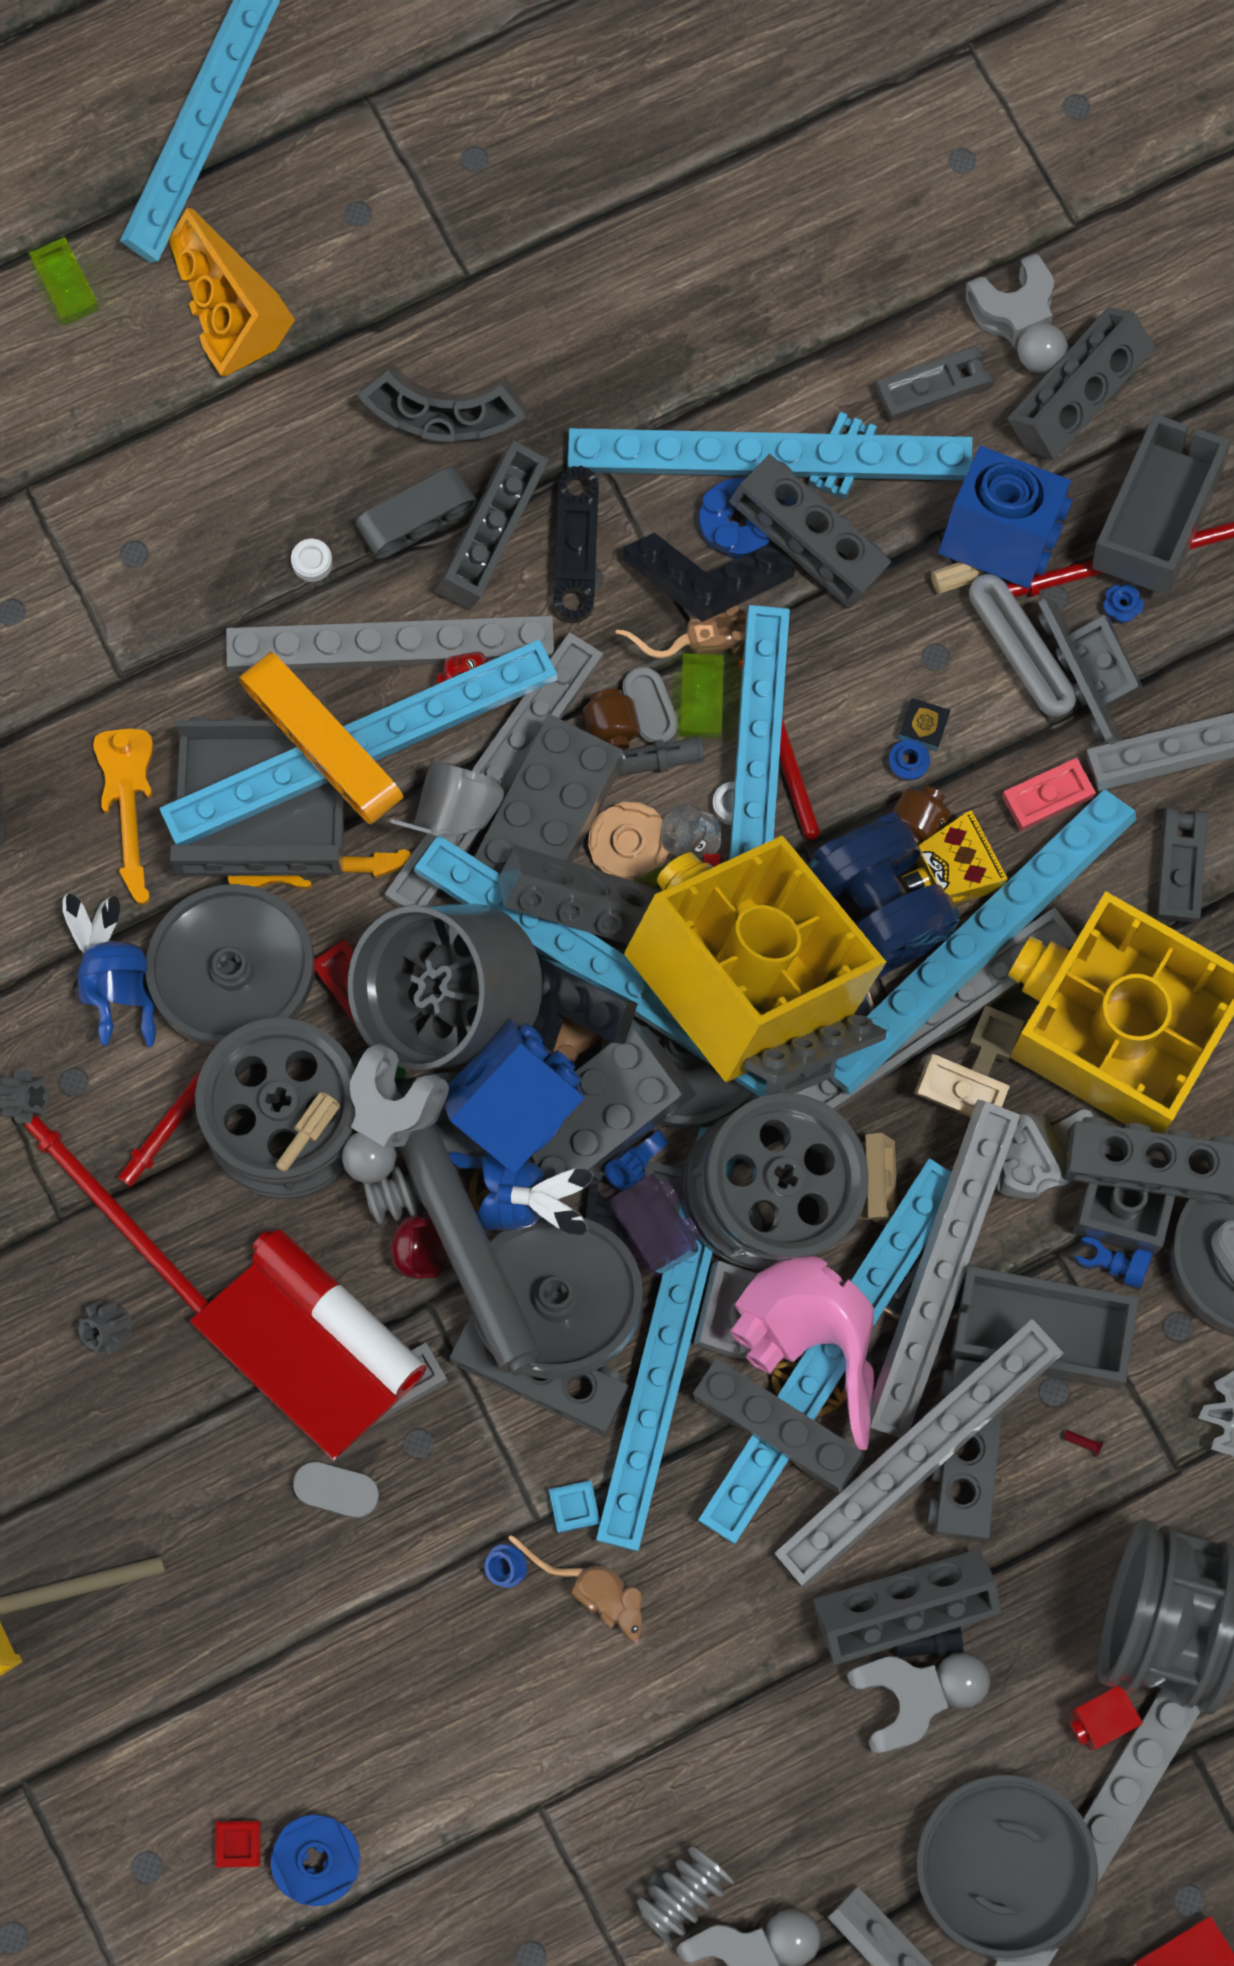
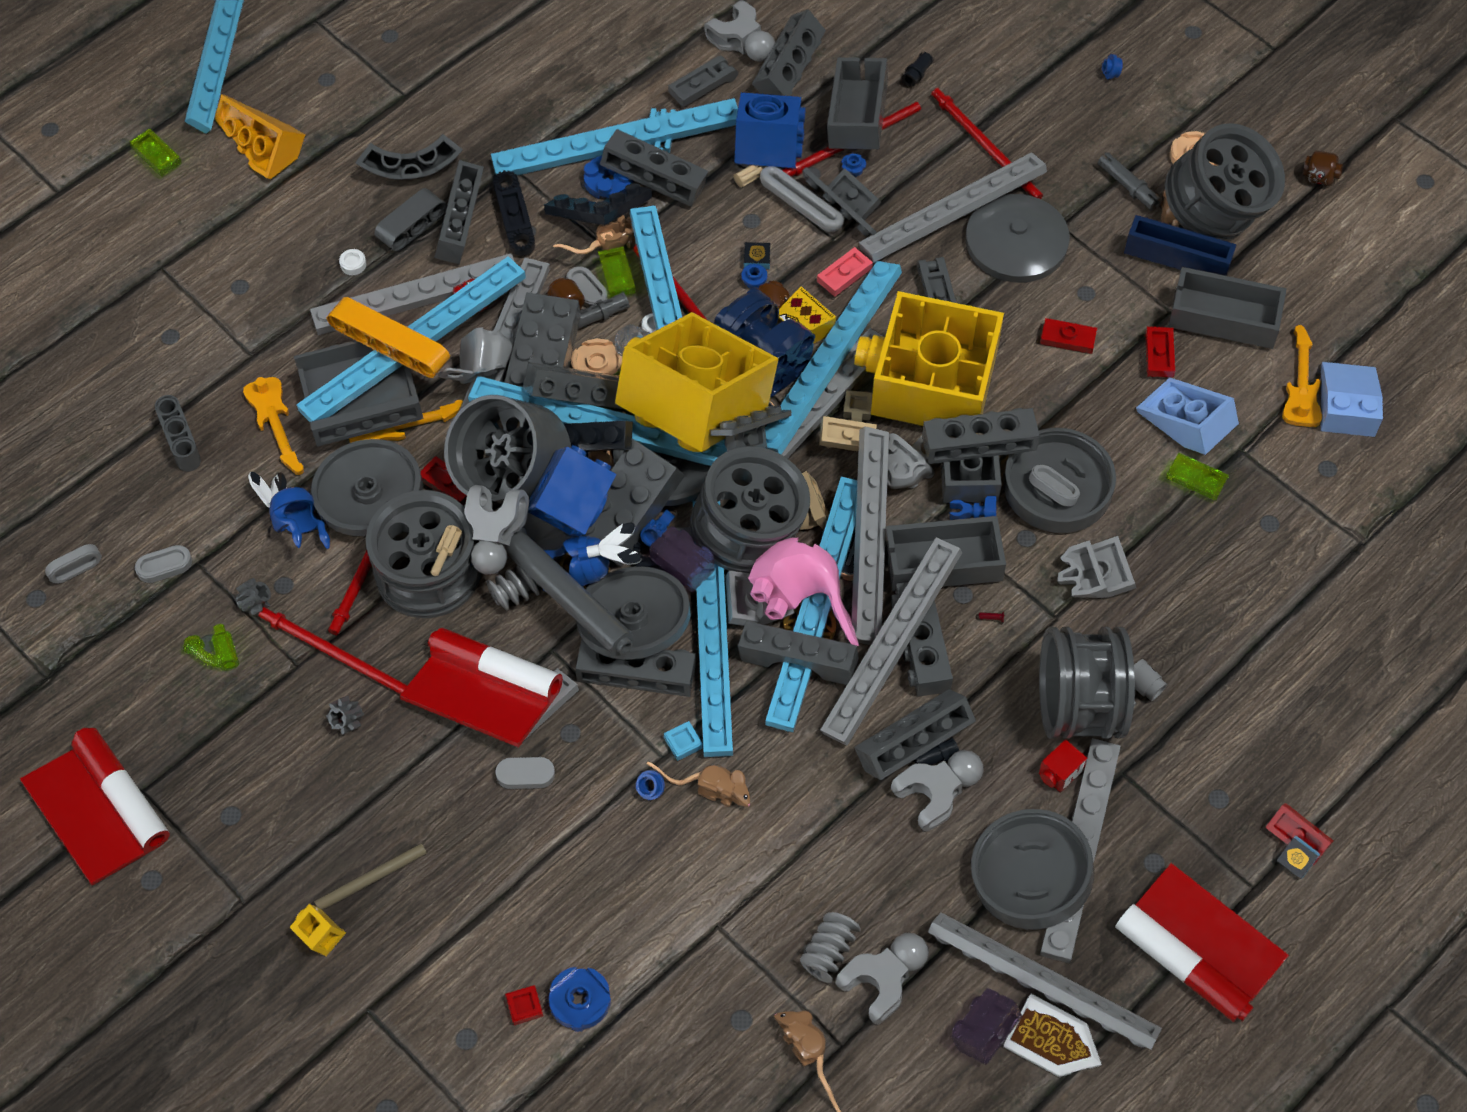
camera: 15 degrees left, 15 degrees down
(417, 1248) = (536, 614): dark red hair -> none

